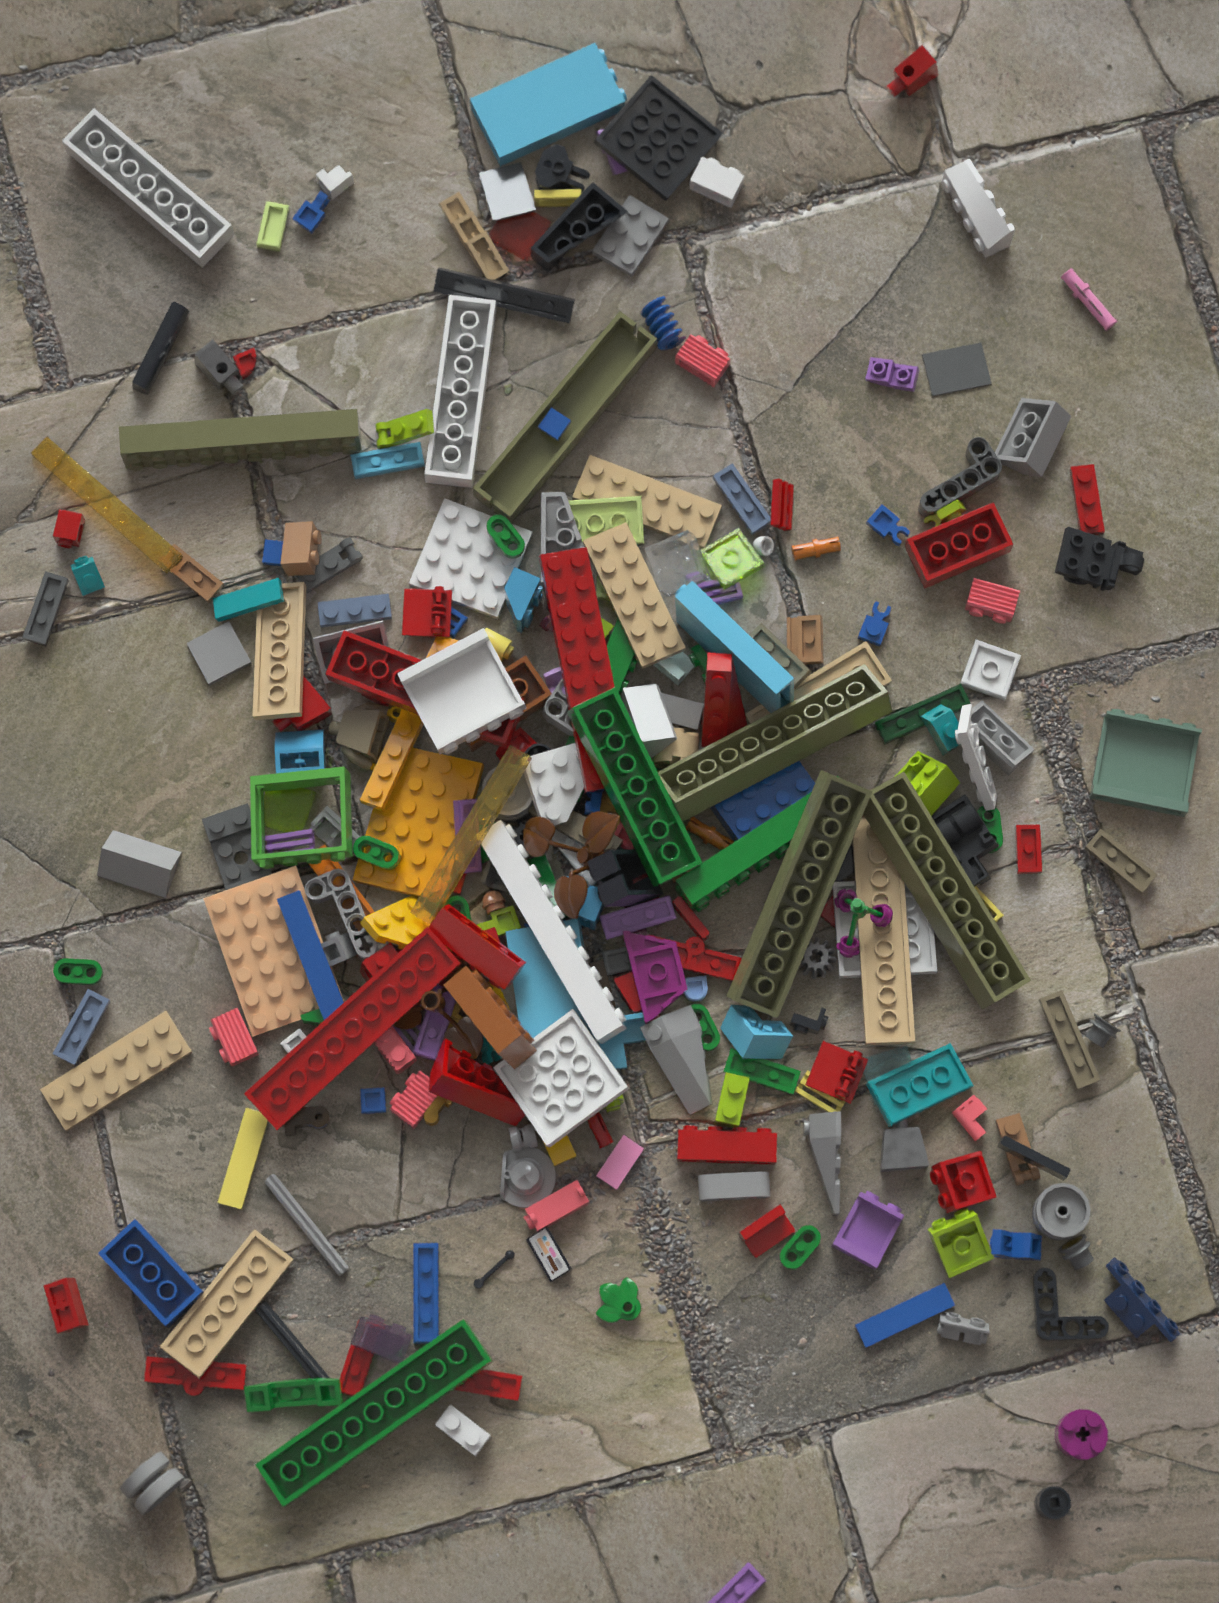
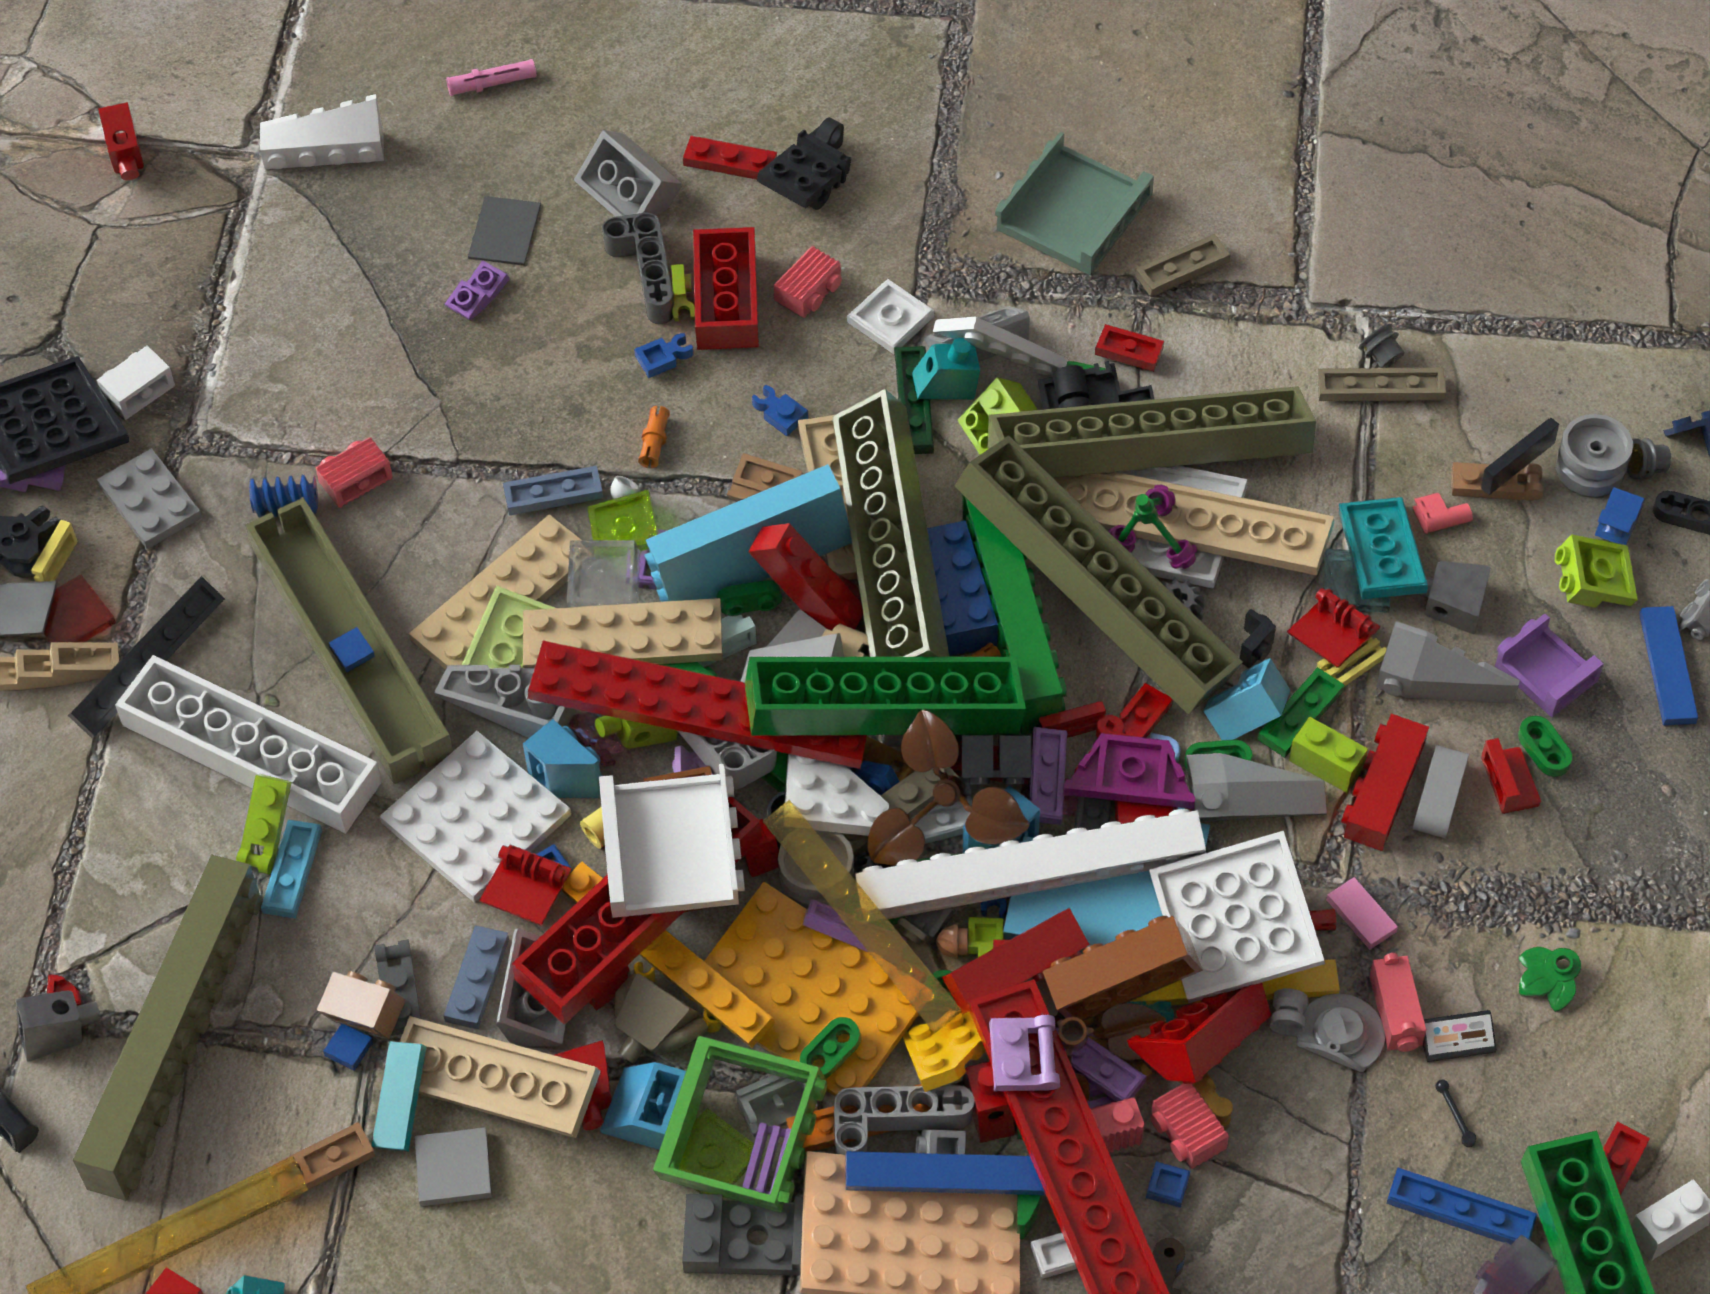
camera: 65 degrees left, 20 degrees down
(400, 967) = (1012, 1055): none -> lavender plate
(506, 537) = (470, 753): green plate -> none
(583, 219) = (104, 534): black wedge -> none
(782, 505) = (582, 451): red tile -> none
(962, 1182) = (1521, 545): red plate -> none

